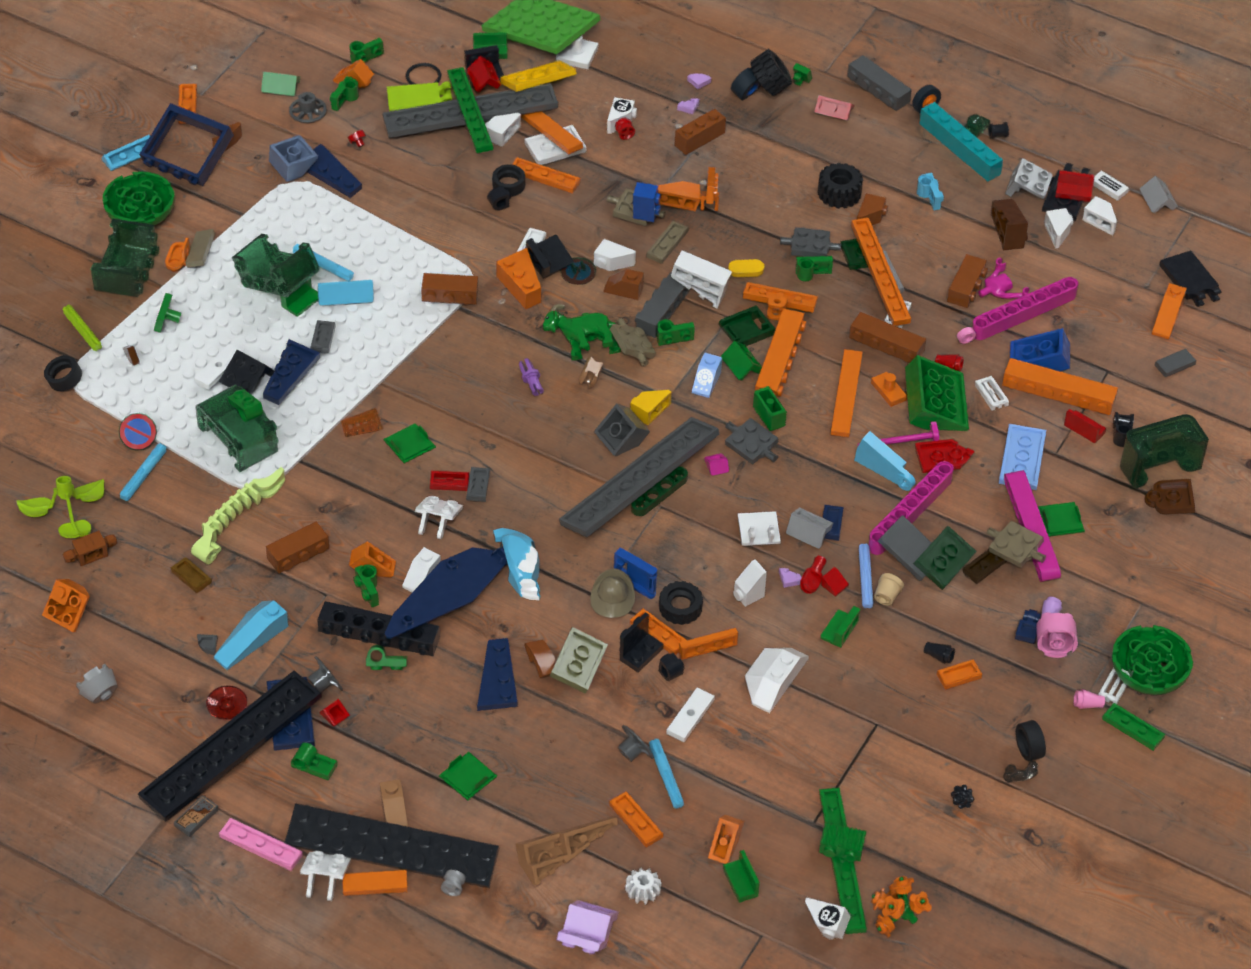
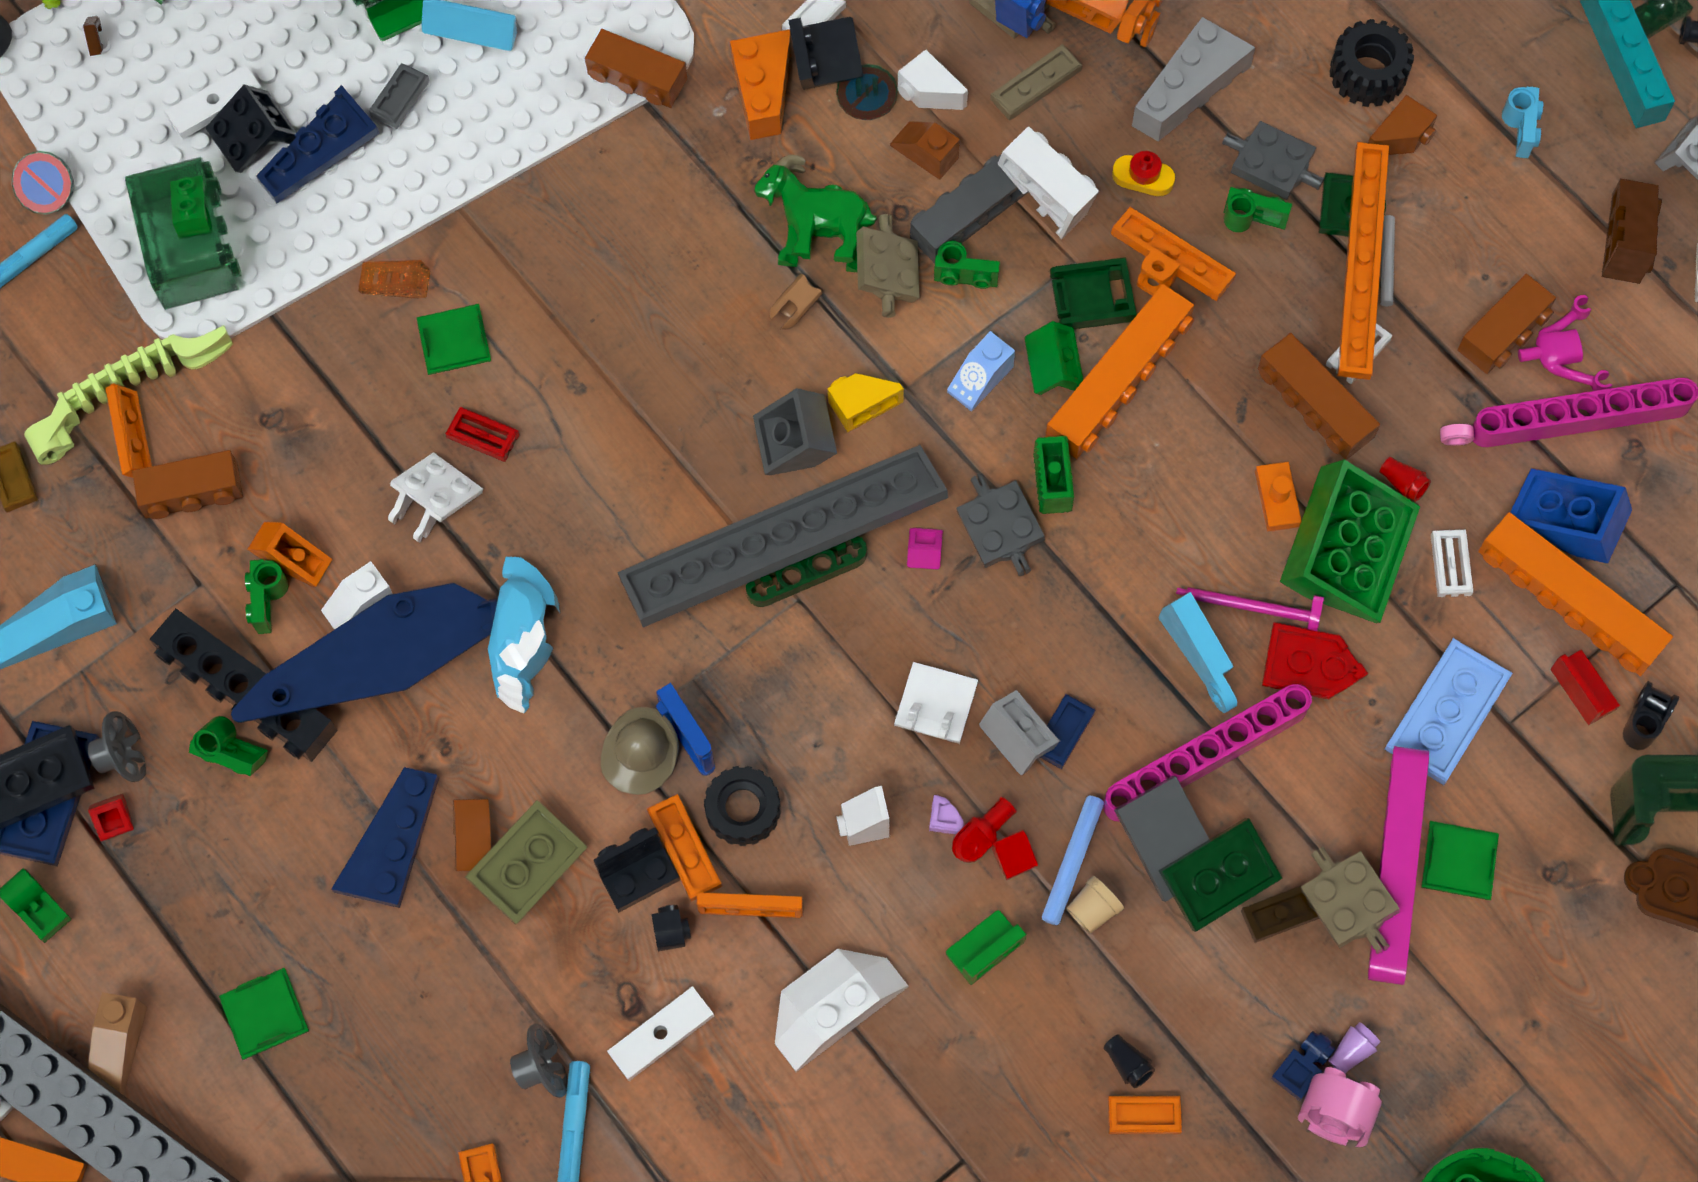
camera: 25 degrees right, 20 degrees up
(249, 530) = (128, 429): none -> orange tile
(478, 484) = (521, 458): dark grey plate -> none
(531, 377) = (695, 275): medium lavender arm -> none
(746, 262) = (1145, 167): none -> red tile
(751, 213) = (1194, 73): none -> light grey wedge
(846, 393) = (1202, 481): orange tile -> none

